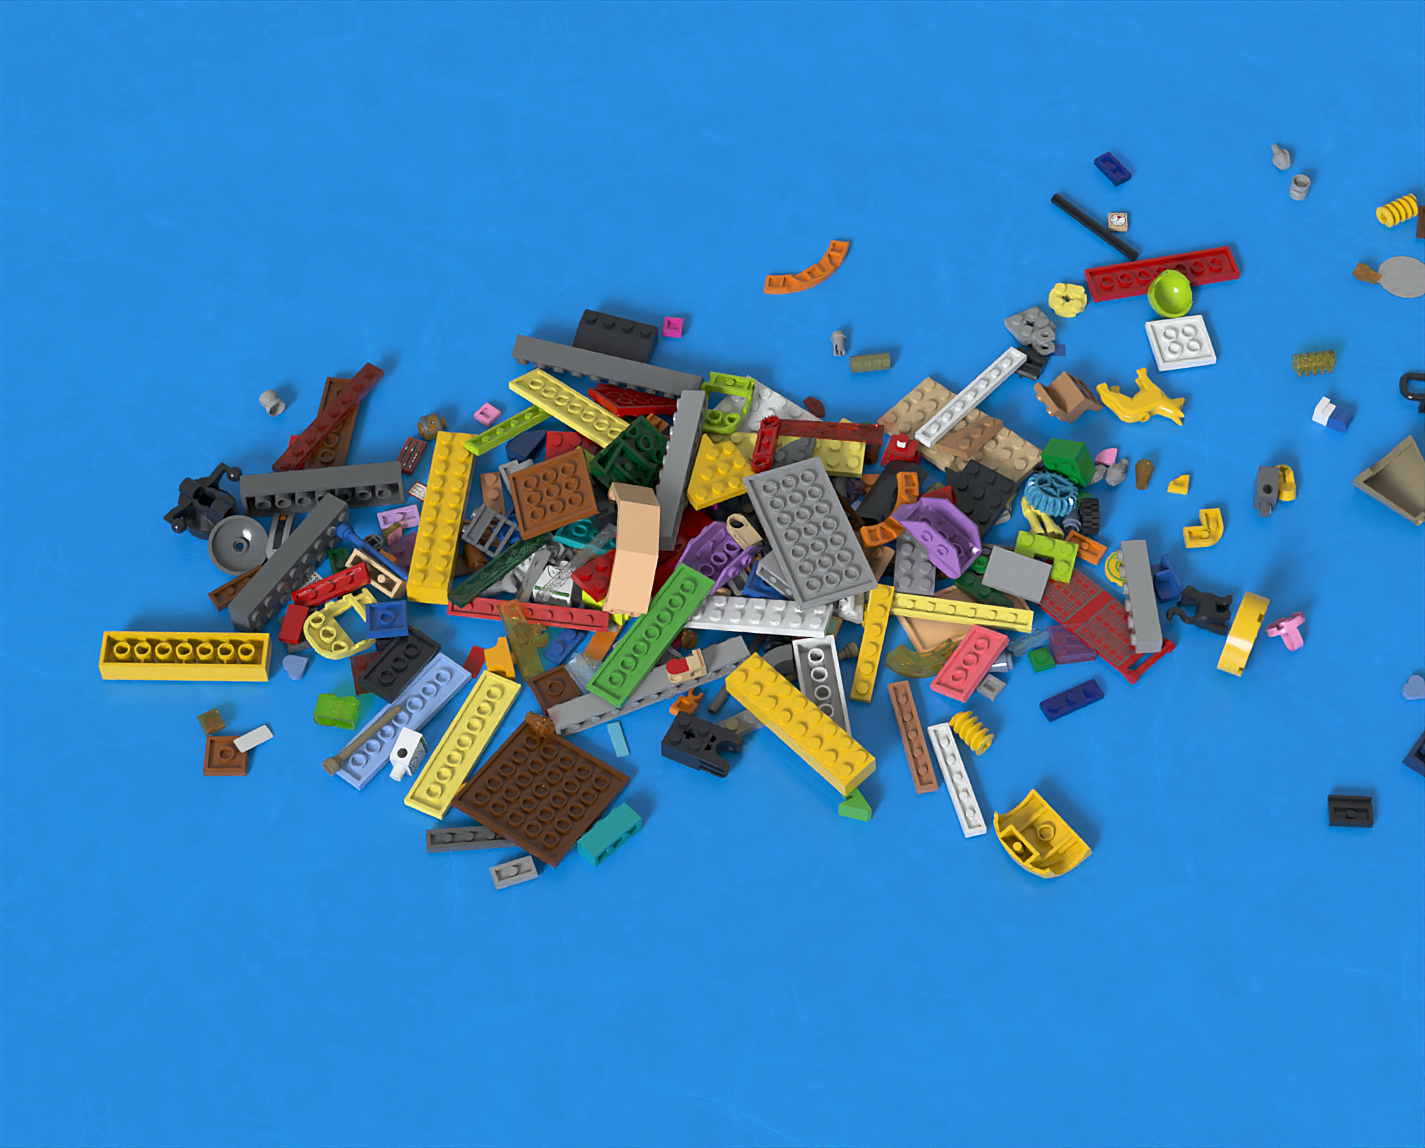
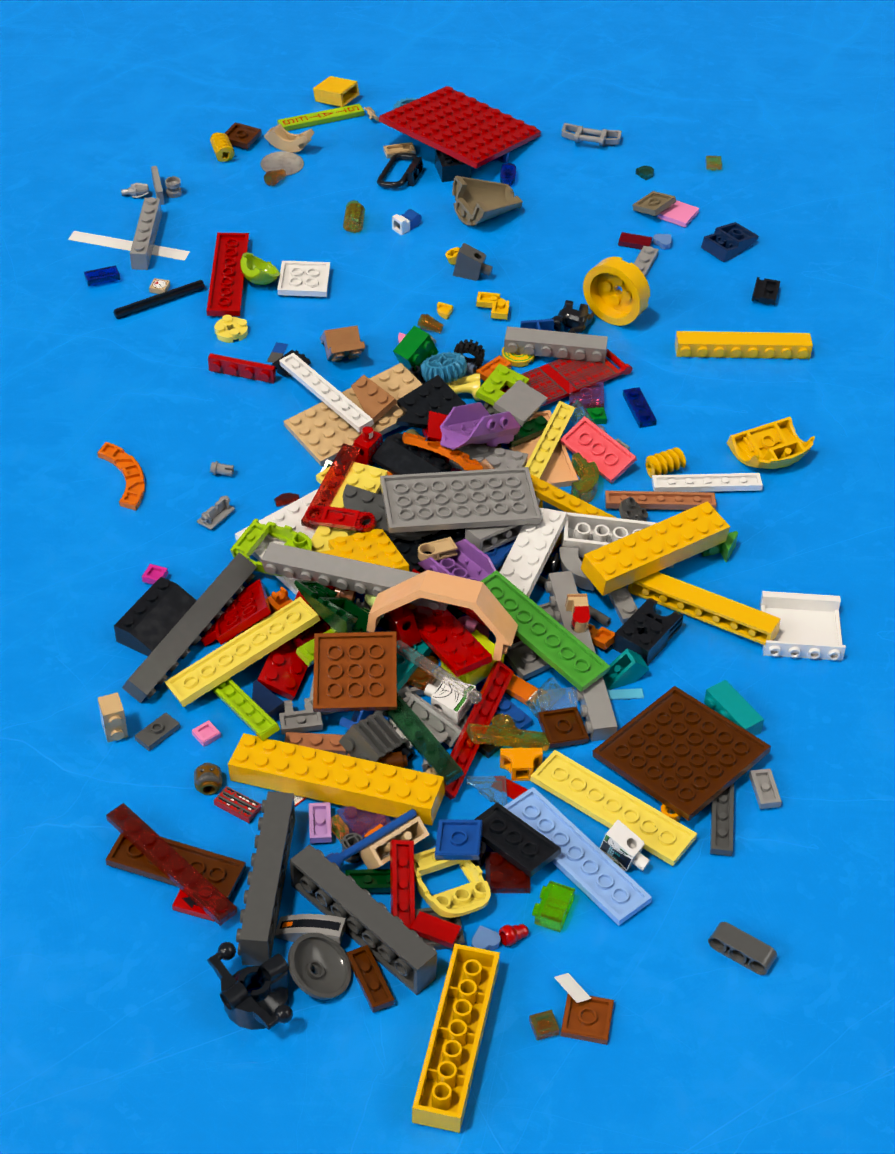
camera: 80 degrees left, 10 degrees down
(272, 402) = (121, 916): light grey wheel -> none
(302, 683) = (512, 934): none -> red piece
(315, 867) = (742, 948): none -> dark grey beam
(333, 763) = (626, 911): dark tan piece -> none
(468, 645) = (490, 787): none -> clear light blue tile
(477, 338) = (112, 717): none -> tan brick
(481, 379) = (157, 731): none -> dark grey plate
(541, 725) = (611, 735): clear orange cone -> none
(642, 732) = (625, 670): none -> teal slope
(748, 799) = (707, 607): none -> yellow brick
(749, 892) = (807, 625): none -> white panel
(770, 354) = (216, 513): none -> light grey hinge
(861, 709) = (631, 510): none -> dark grey plate
(869, 362) = (253, 453): olive axle -> none
(999, 316) = (242, 368): none -> red plate
(1039, 335) = (262, 348): light grey plate -> none
(1144, 404) = (358, 306): yellow animal -> none
(1183, 180) = (126, 245): none -> white sticker
(1199, 185) = (145, 233): none -> light grey brick
(1224, 795) = (743, 344): none -> yellow brick
(1308, 168) = (157, 184): none -> light grey tile
(1358, 672) = (646, 259): none -> light grey plate
(1400, 658) = (634, 241): none -> dark red tile

